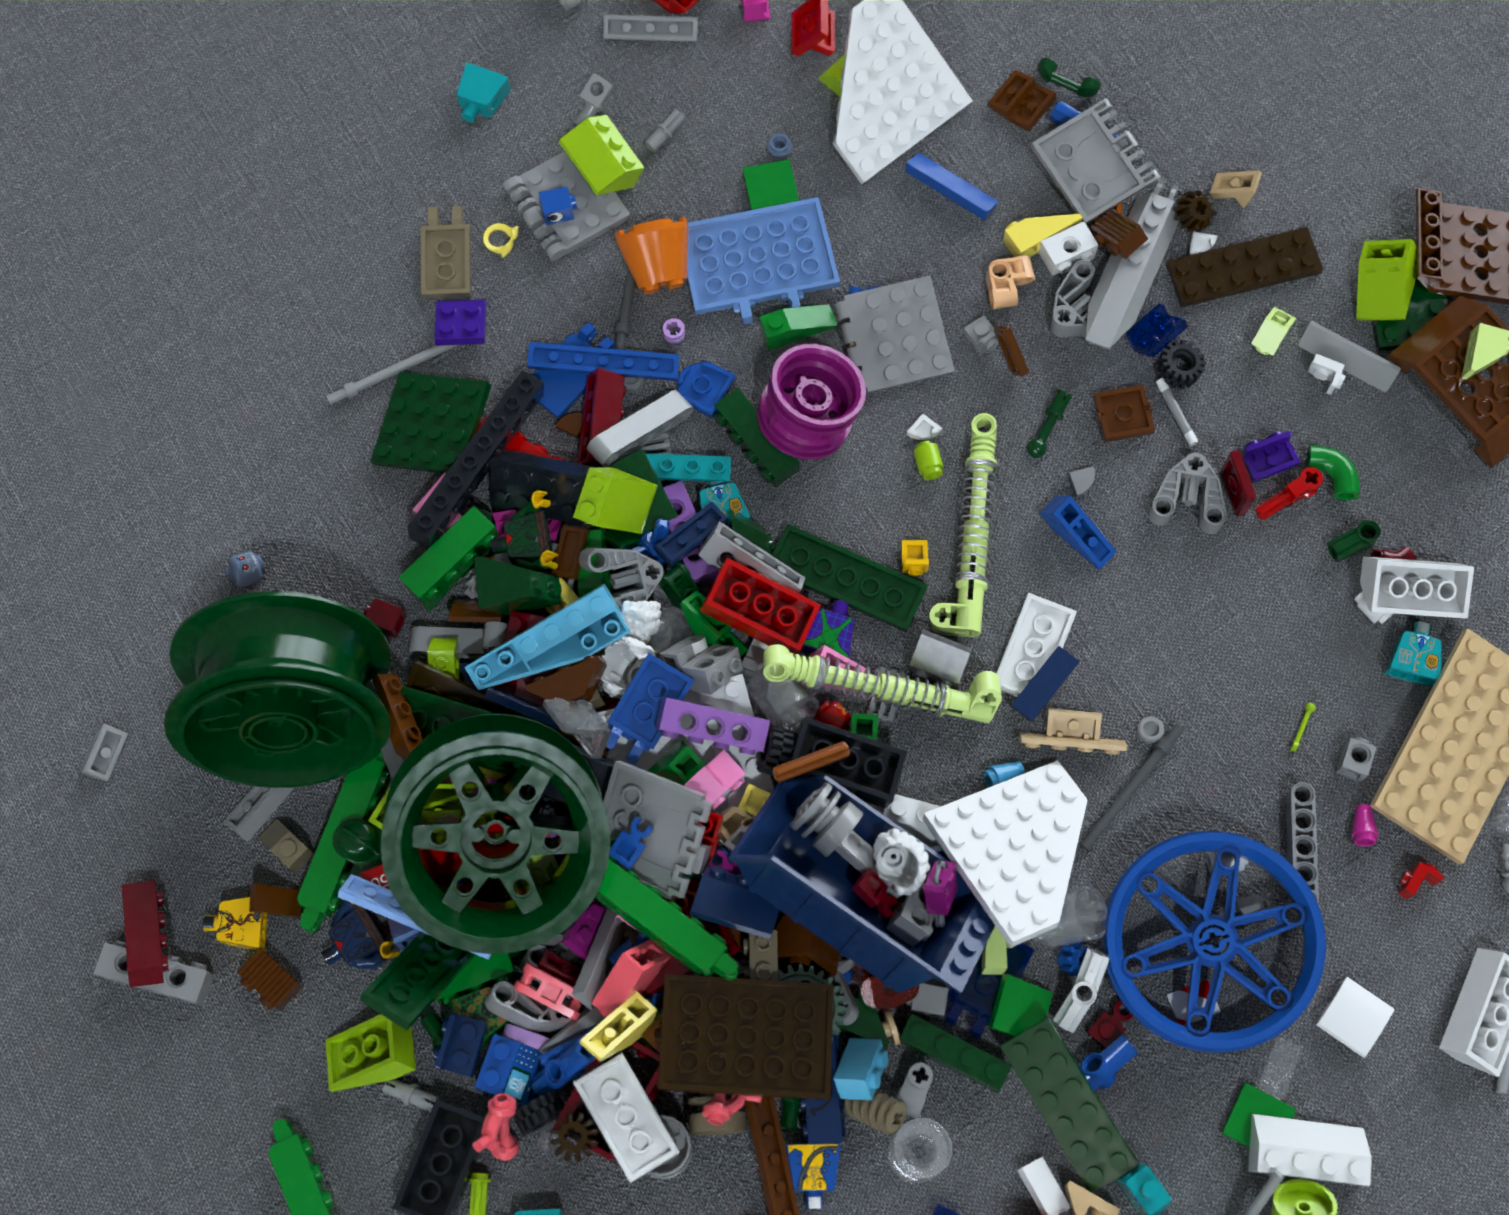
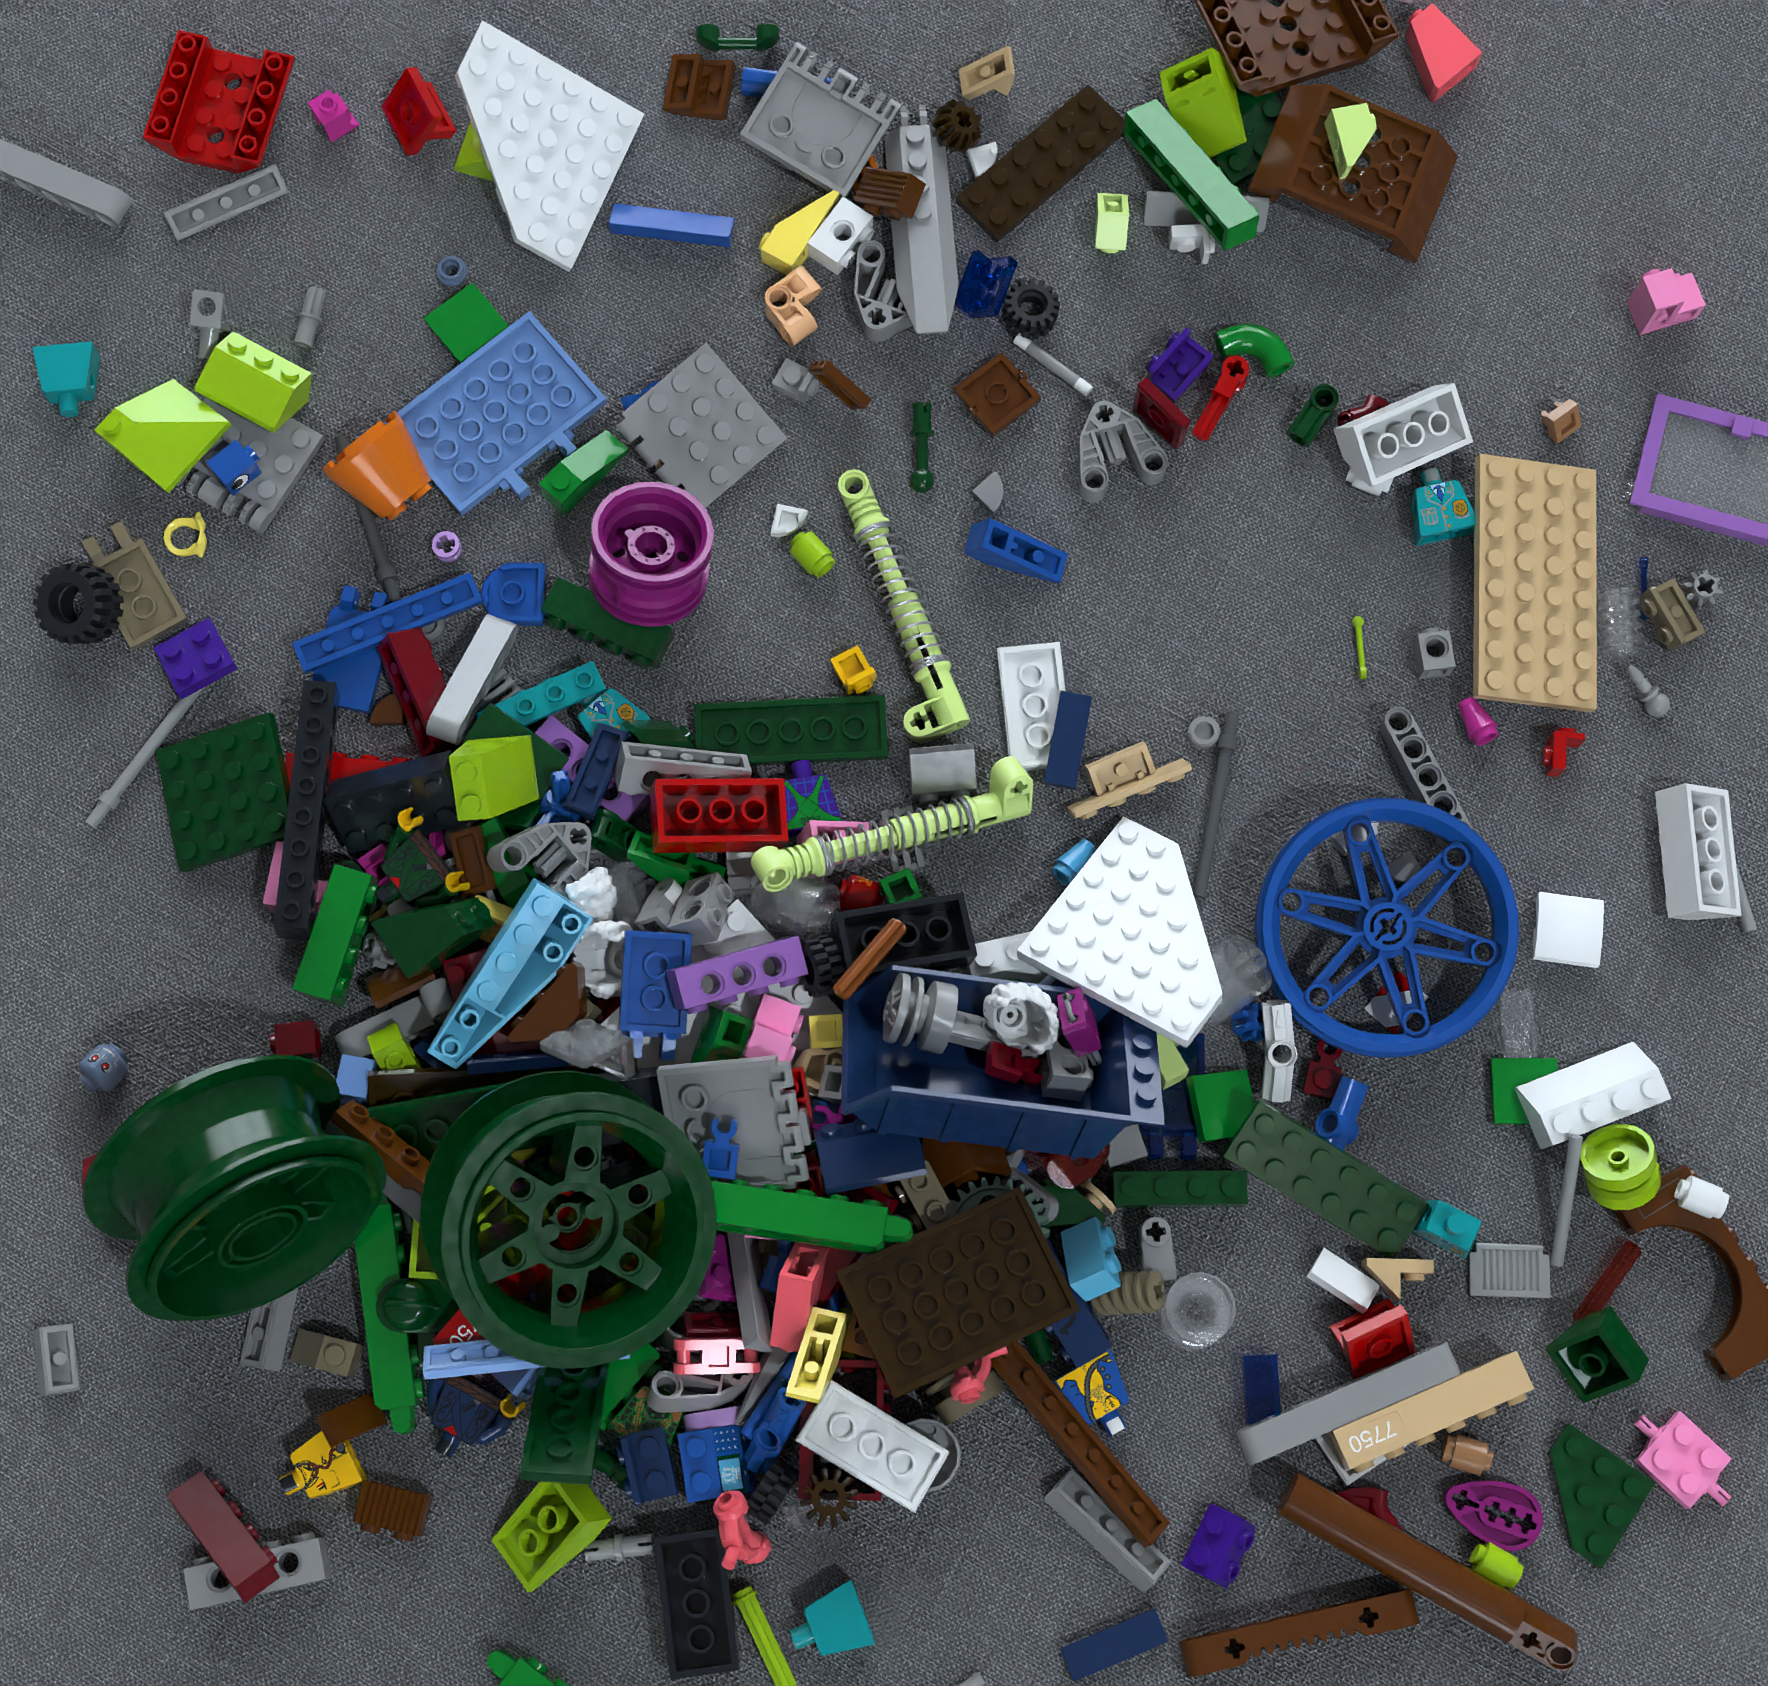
camera: 30 degrees left, 5 degrees up
(388, 239) = (57, 600): none -> black tyre
(404, 661) = (353, 1078): none -> medium blue slope
(522, 159) = (163, 432): none -> lime slope
(1350, 324) = (1191, 174): none -> brick

